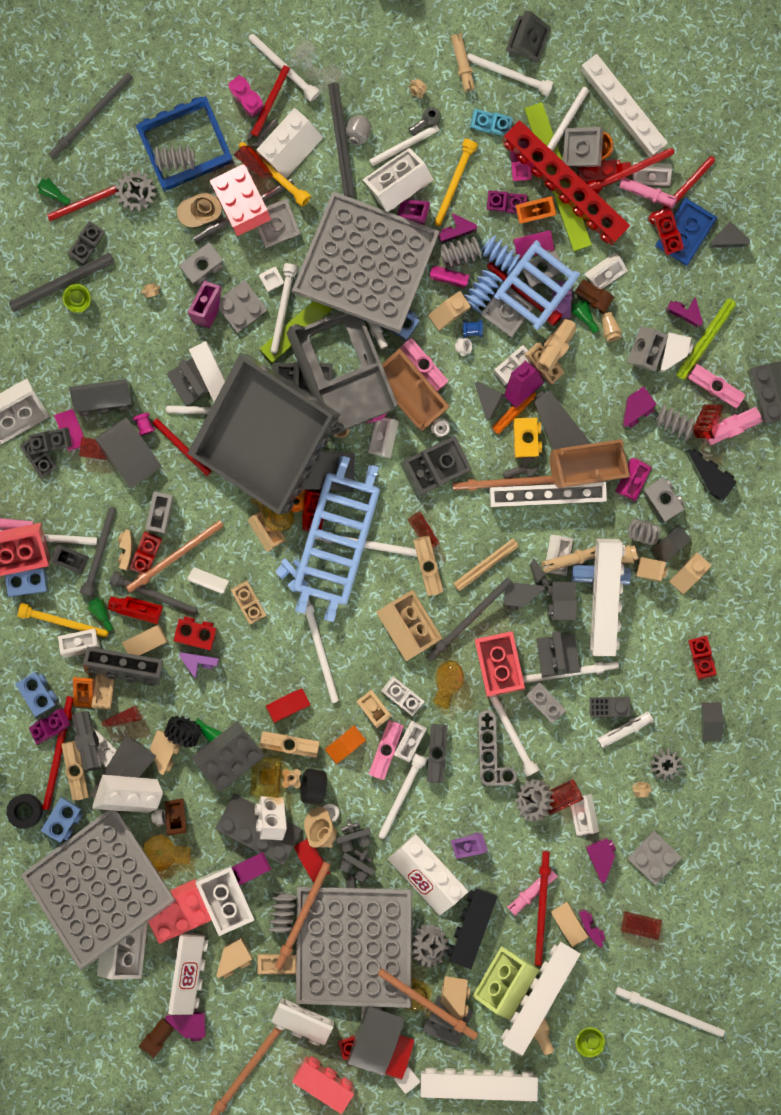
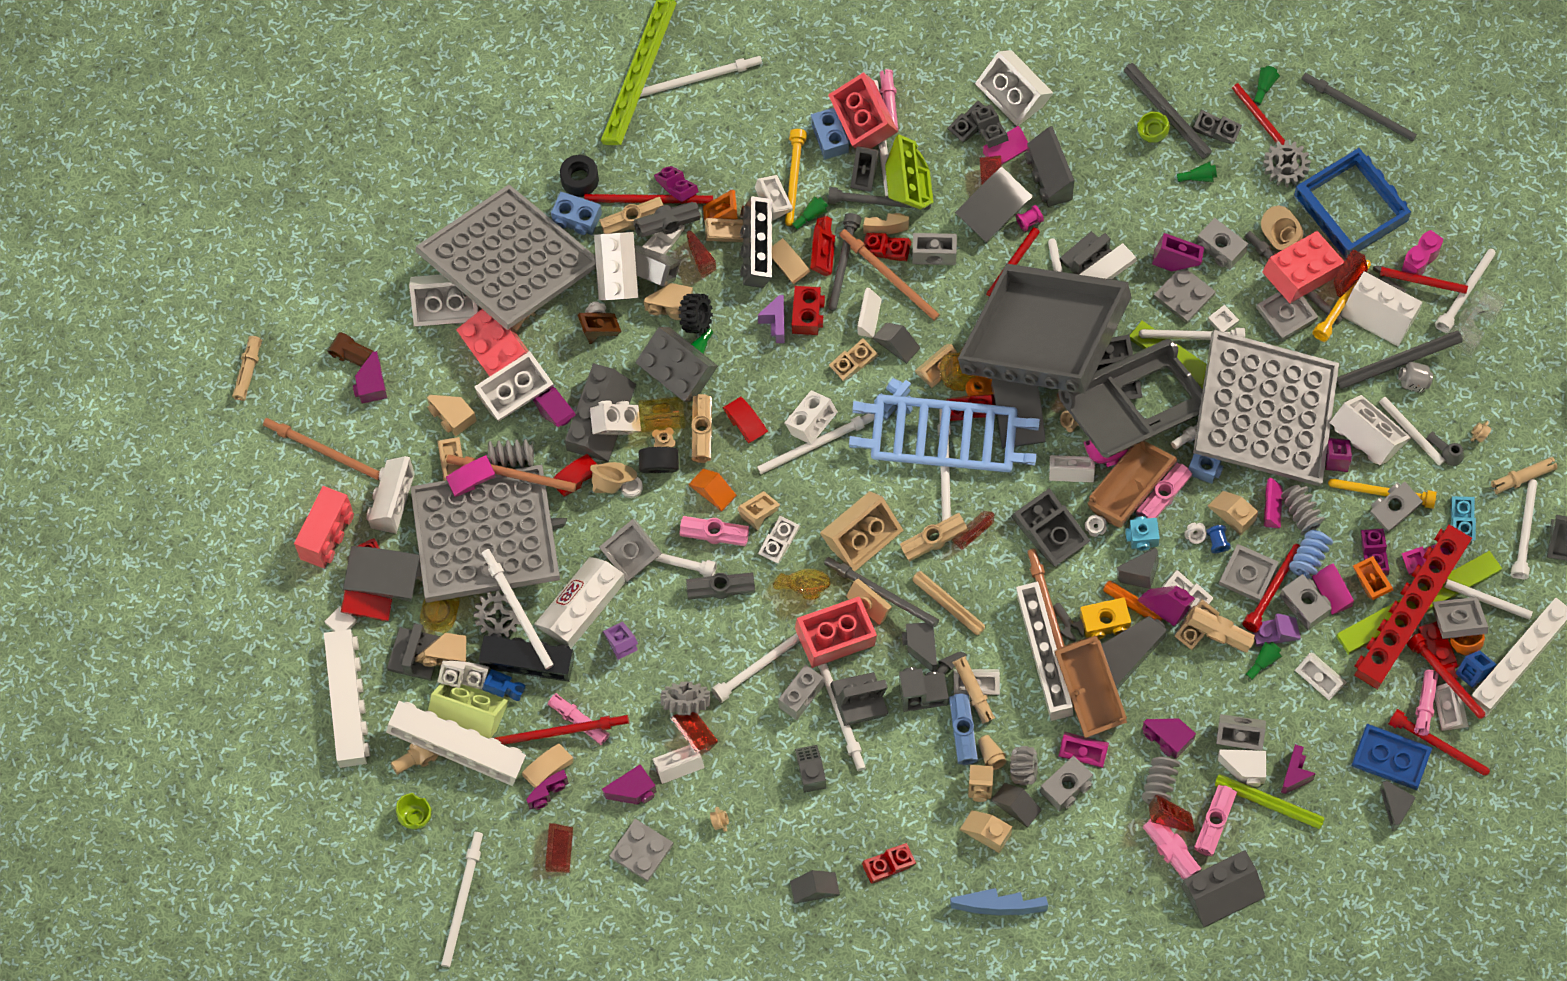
camera: 85 degrees right, 20 degrees down
(32, 697) = (706, 162): medium blue brick -> none
(86, 521) = (908, 174): none -> lime wedge
(129, 265) = (1203, 173): none -> green cone
(150, 290) = (1180, 198): tan plate -> none
(170, 855) = (556, 320): clear yellow animal -> none
(175, 158) = (1332, 189): light grey piece -> none
(187, 974) = (427, 365): white slope -> none
(238, 562) = (897, 341): none -> dark grey slope
(300, 646) = (811, 417): none -> white brick
(300, 951) = (469, 475): none -> dark pink slope
(345, 840) = (612, 521): dark grey hips -> none
(364, 871) = (580, 514): dark grey hips -> none
(392, 824) = (630, 549): none -> light grey plate
(399, 943) = (497, 572): none -> white bar
(410, 741) = (729, 552): white slope -> none
(459, 1025) = (412, 654): nougat bar -> none
(461, 384) = (1143, 533): none -> medium azure brick
(462, 228) = (1329, 505): magenta slope -> none
(474, 631) = (875, 606): none -> tan plate
(478, 976) = (457, 673): none -> white slope
(482, 290) = (1264, 540): light blue piece -> none
(483, 181) = (1390, 519): none -> light grey brick
(490, 954) = (501, 684): none -> blue plate
(491, 747) = (738, 644): light grey beam -> none
(549, 306) = (1285, 567): light blue bar -> none
(596, 297) = (1288, 668): reddish brown piece -> none
(606, 597) = (937, 732): white brick -> none
(611, 329) = (1255, 690): tan cone -> none
(626, 729) = (791, 795): white pin -> none
(627, 145) = (1475, 668): none -> blue brick
(668, 232) = (1384, 732): red slope -> none
(670, 770) = (763, 842): light grey gear -> none
(713, 480) = (1102, 836): black slope -> none
(752, 583) = (989, 903): none -> medium blue slope

